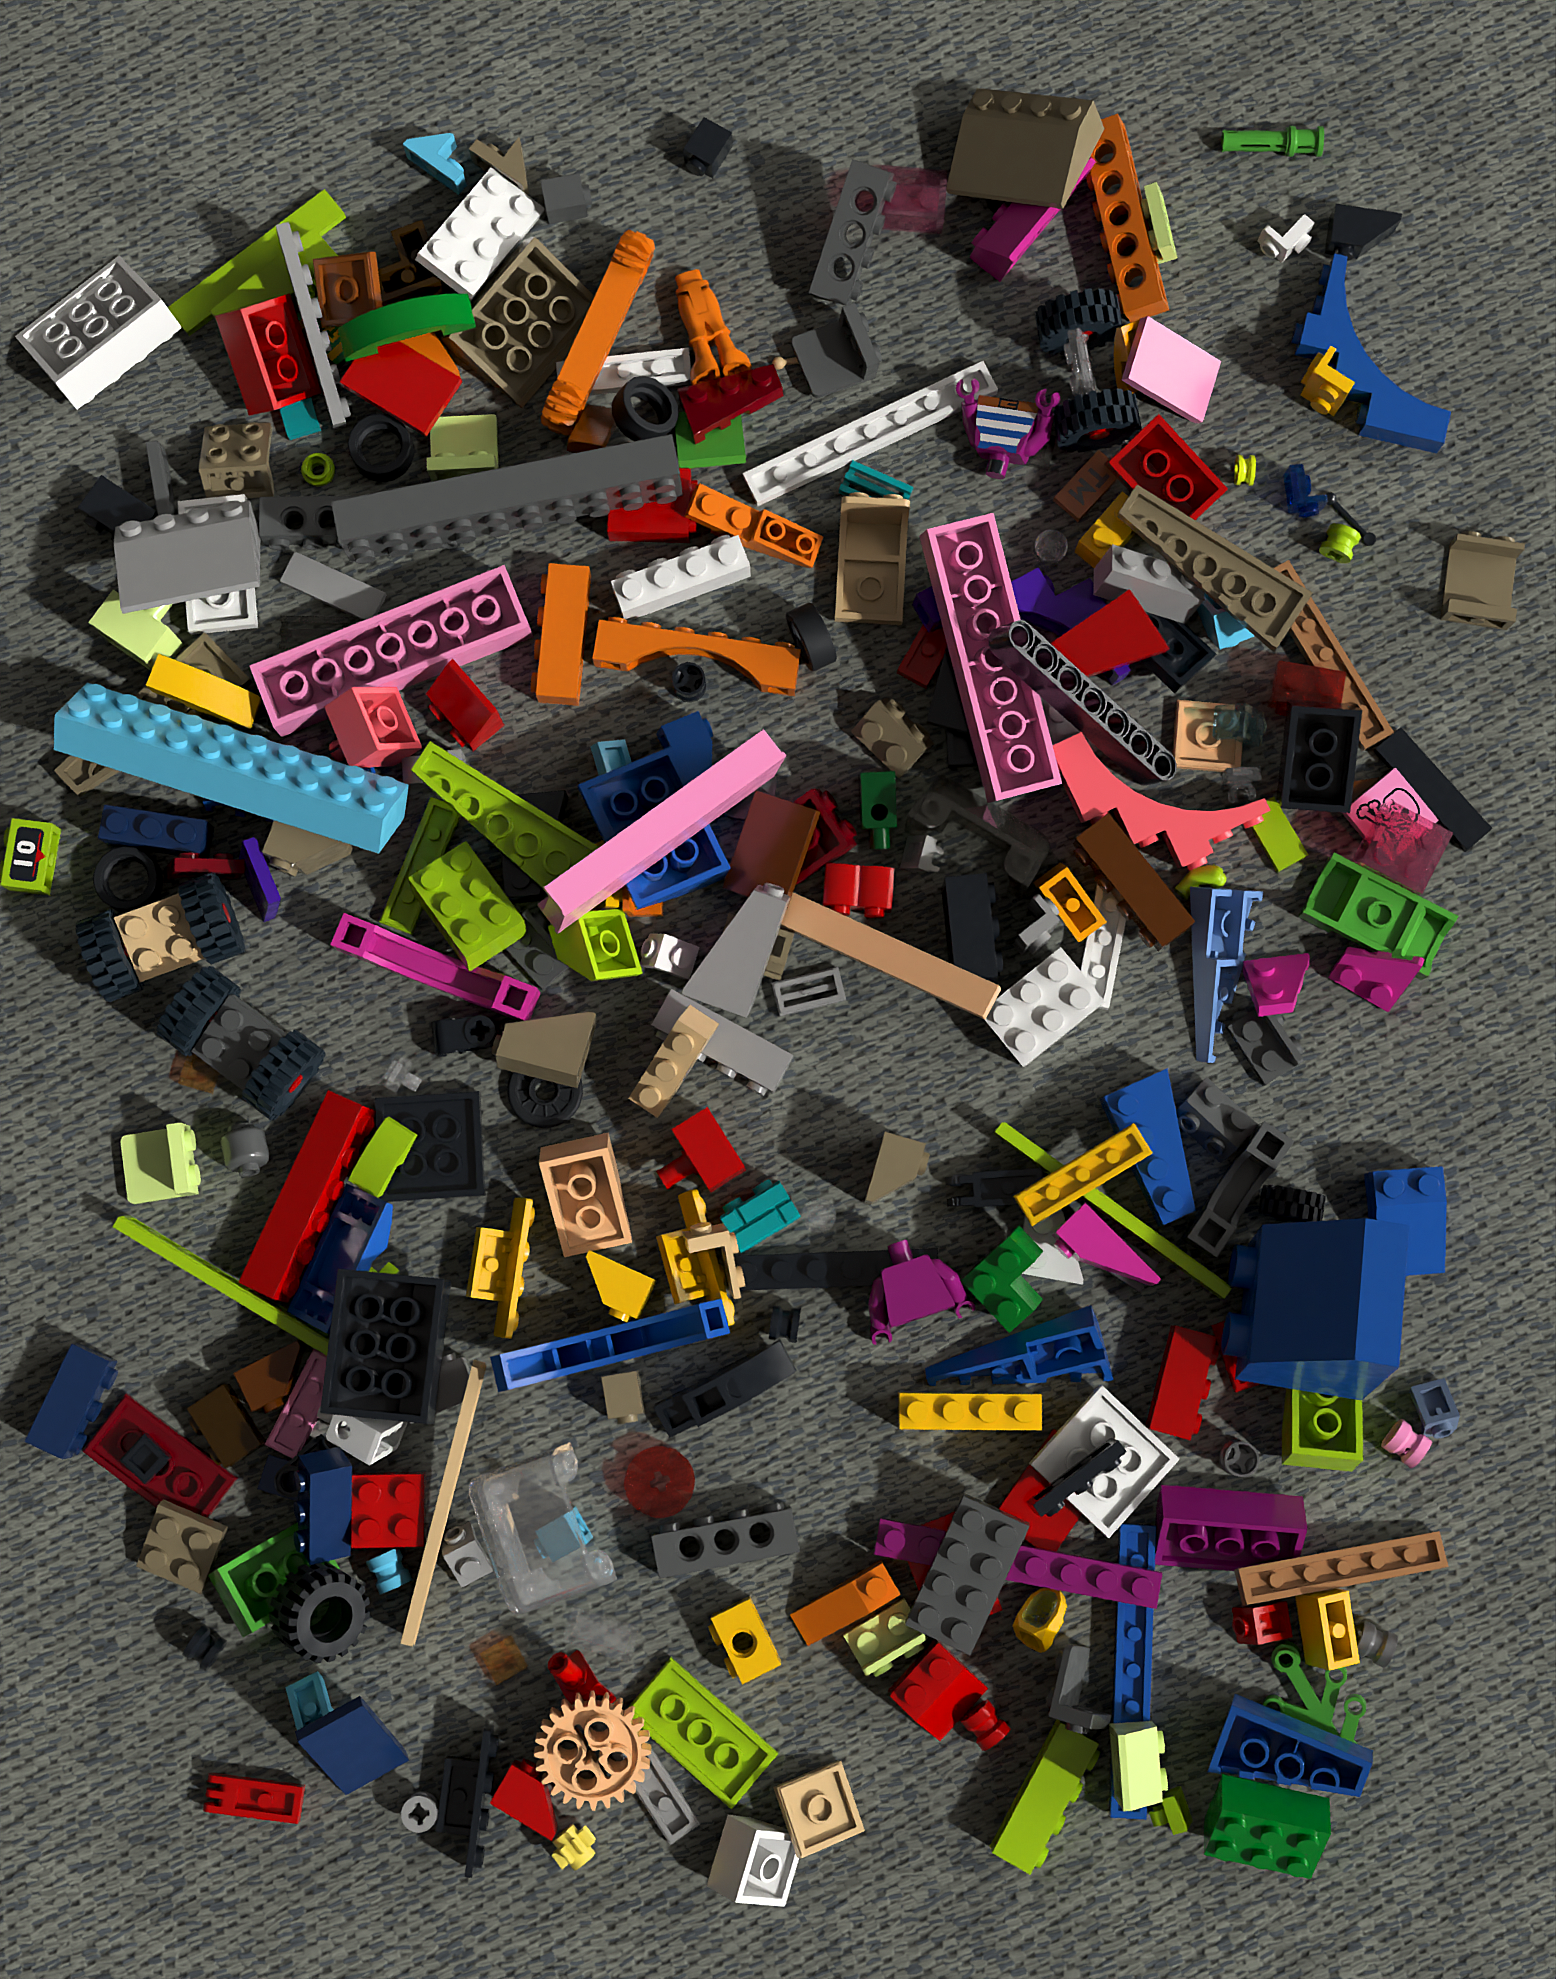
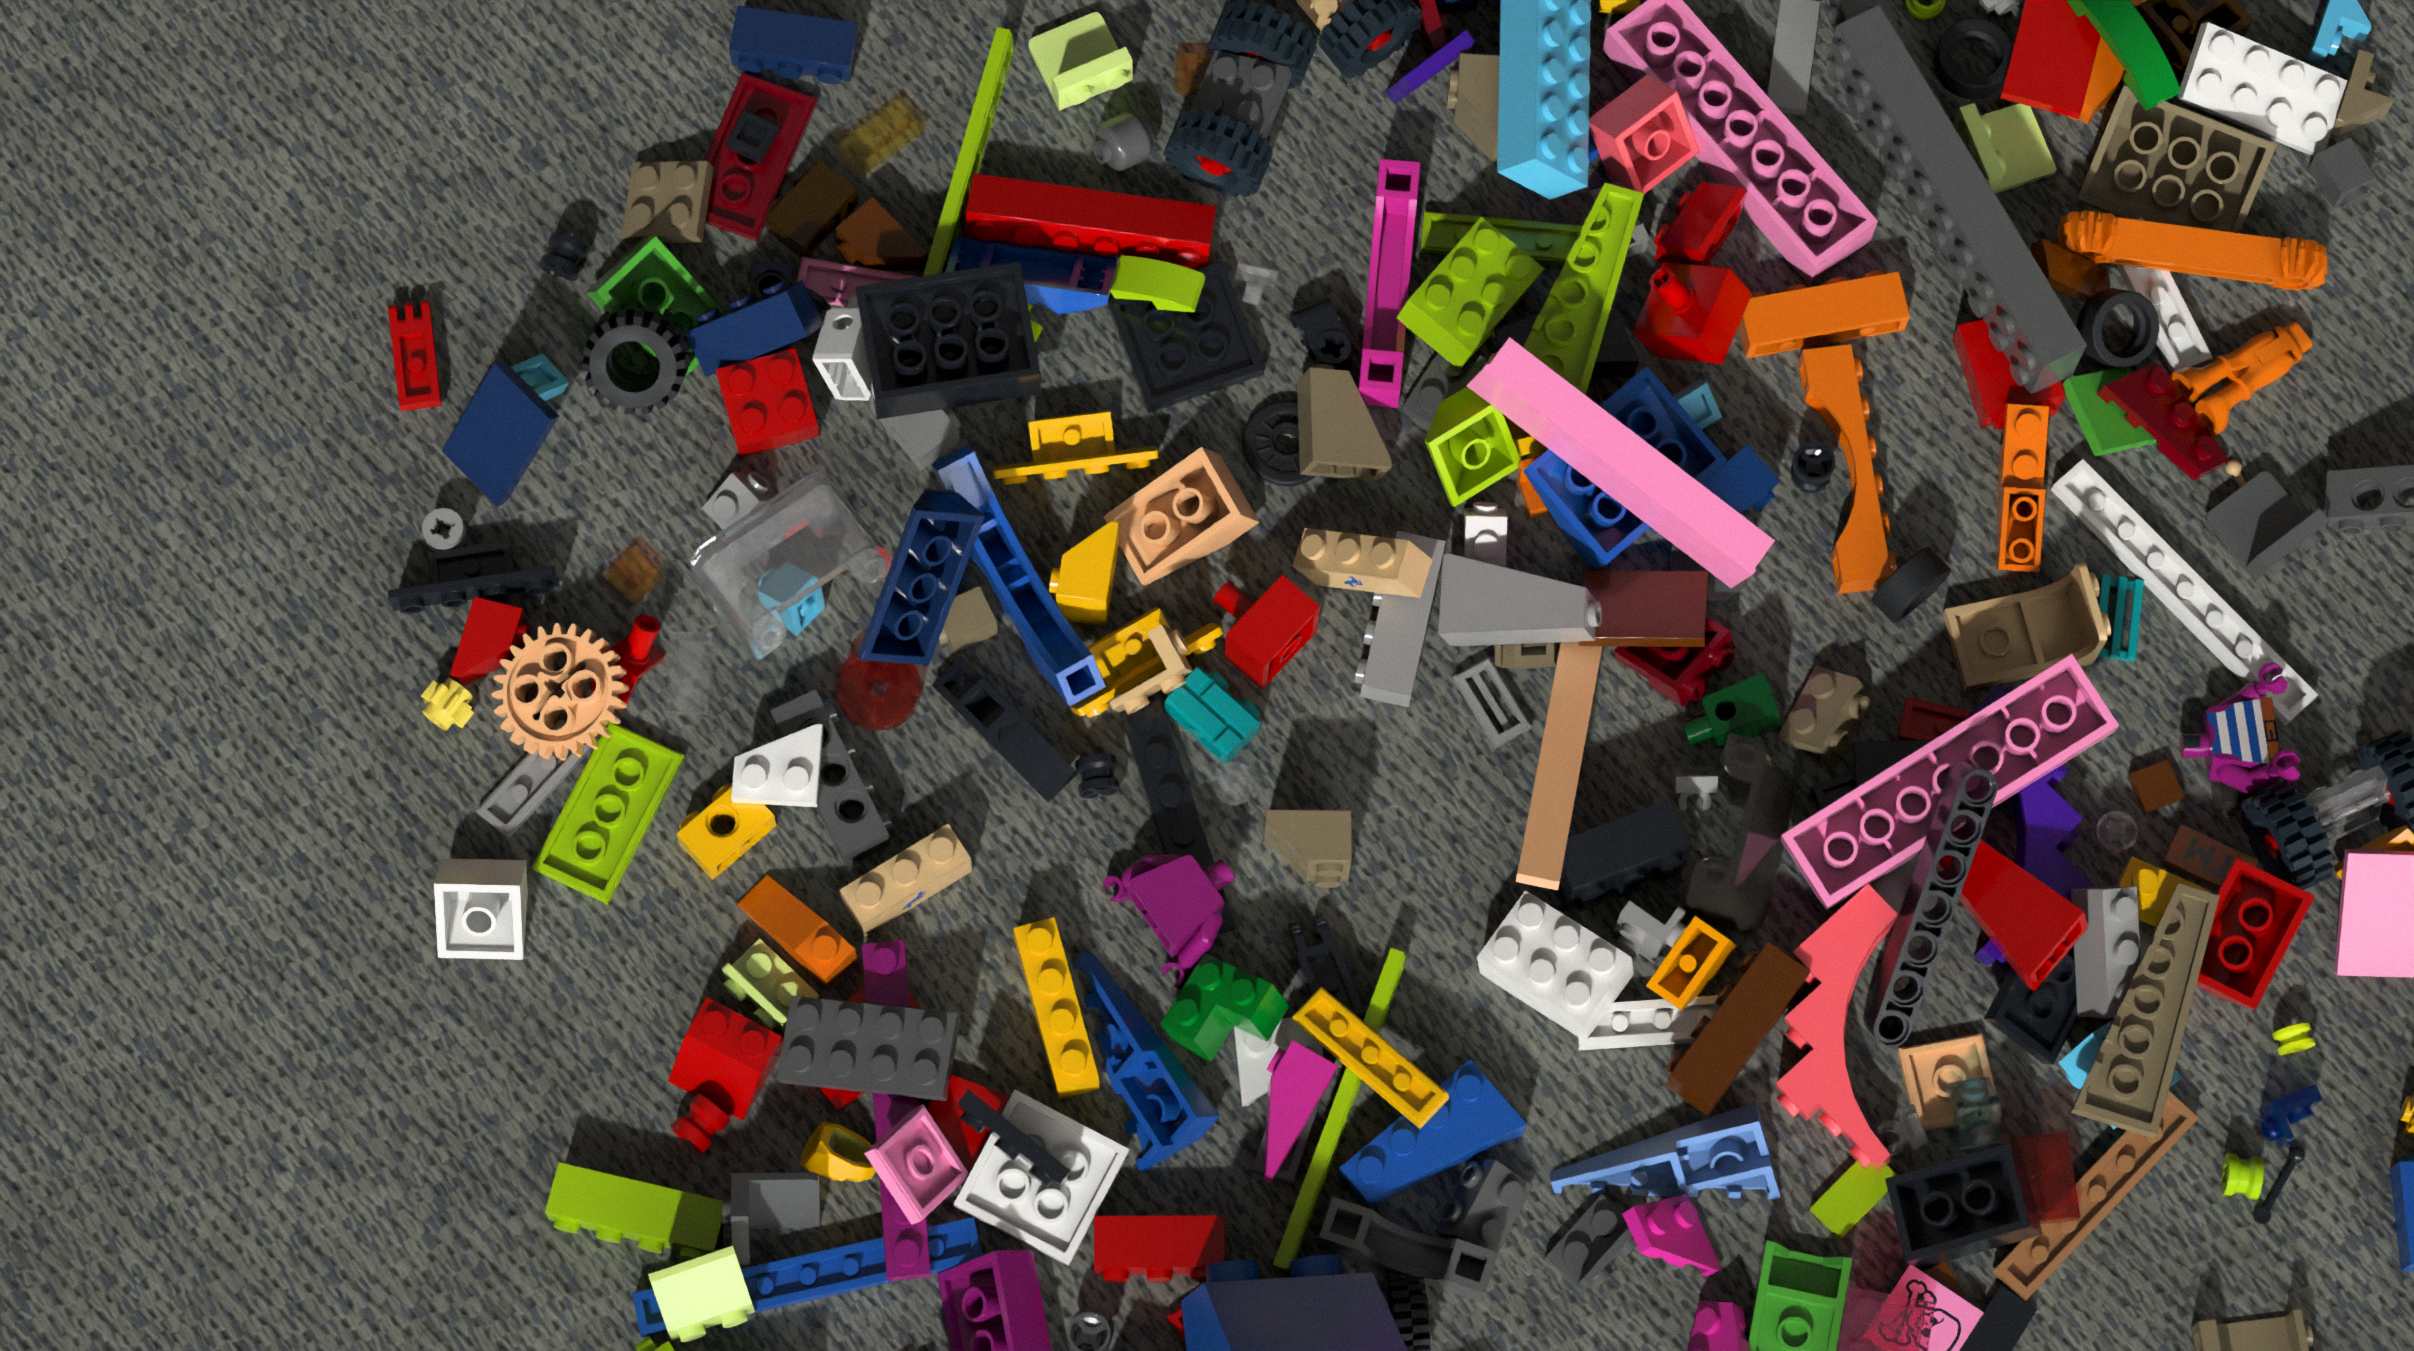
camera: 70 degrees right, 10 degrees down
(177, 1351) = (879, 138): none -> clear yellow tile
(389, 1570) = (700, 424): medium azure wheel -> none
(443, 1503) = (791, 455): tan tile -> none
(536, 735) = (1692, 312): none -> red brick
(591, 1424) = (922, 579): none -> dark blue slope
(681, 578) = (1933, 424): white brick -> none
(715, 1583) = (781, 771): none -> white wing
(818, 1809) = (557, 962): tan tile -> none
(830, 1504) = (906, 880): none -> tan brick
(859, 889) = (1630, 722): red brick -> none
(1018, 506) = (2156, 787): none -> reddish brown tile
(1074, 1560) = (917, 1164): none -> bright pink tile
(1202, 875) = (1775, 1117): lime arm -> none

